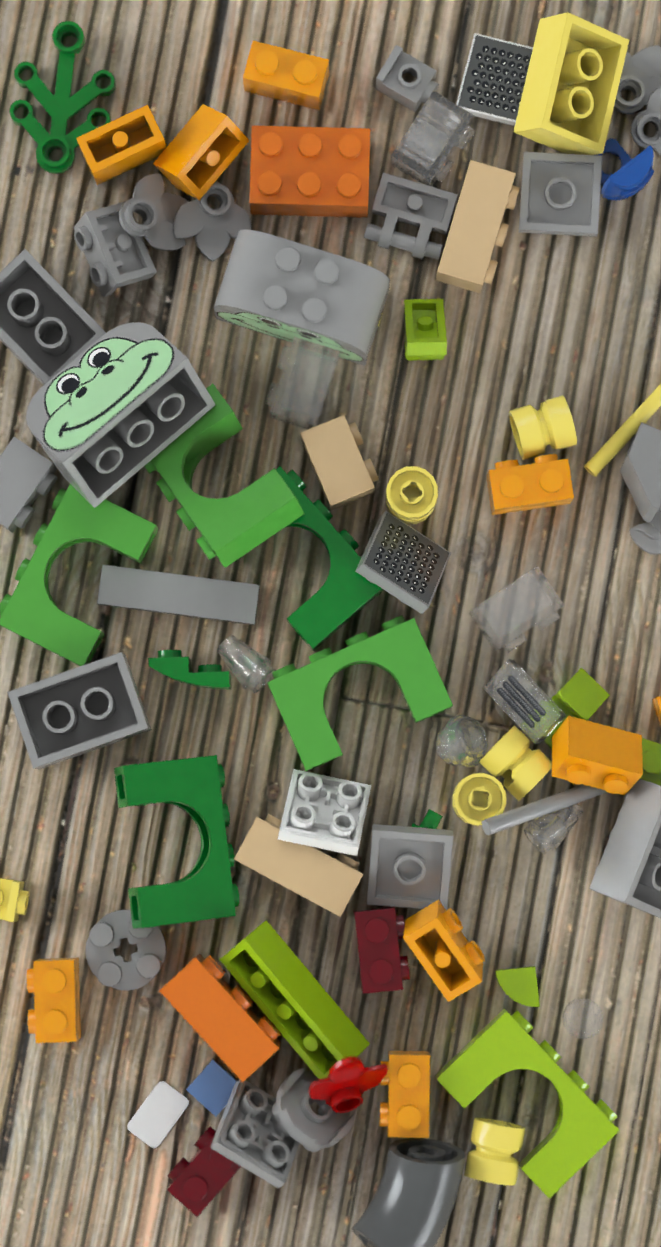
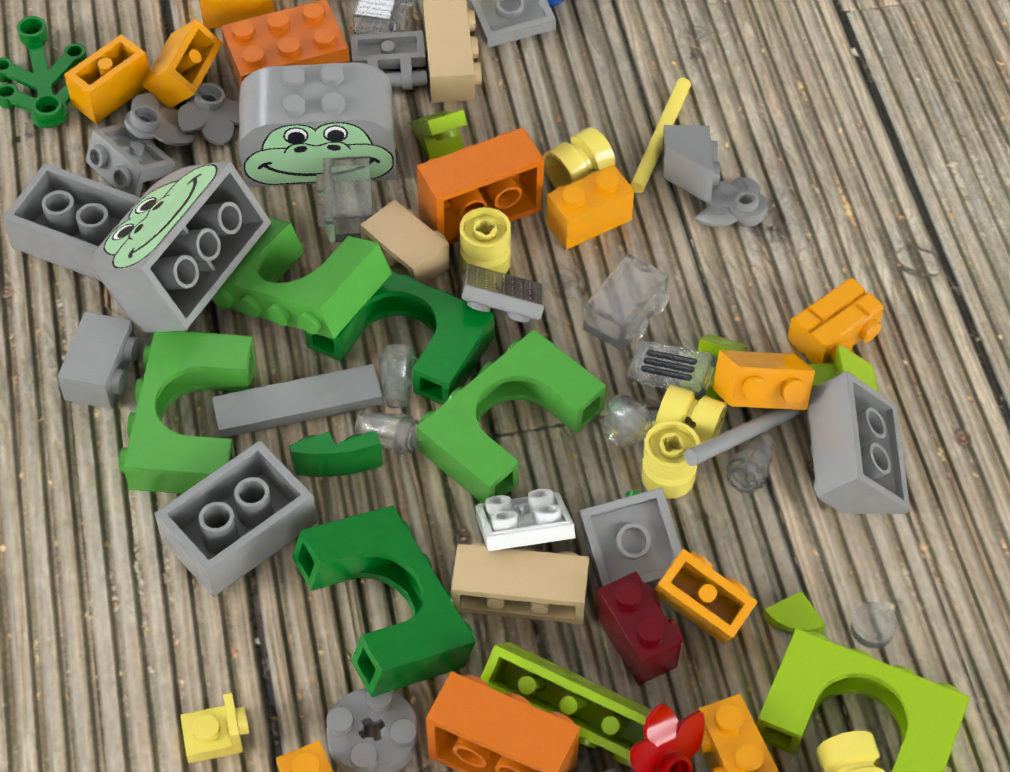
camera: 25 degrees left, 30 degrees down
(276, 605) = (396, 374): none -> clear cone
(431, 430) = (493, 174): none -> orange brick

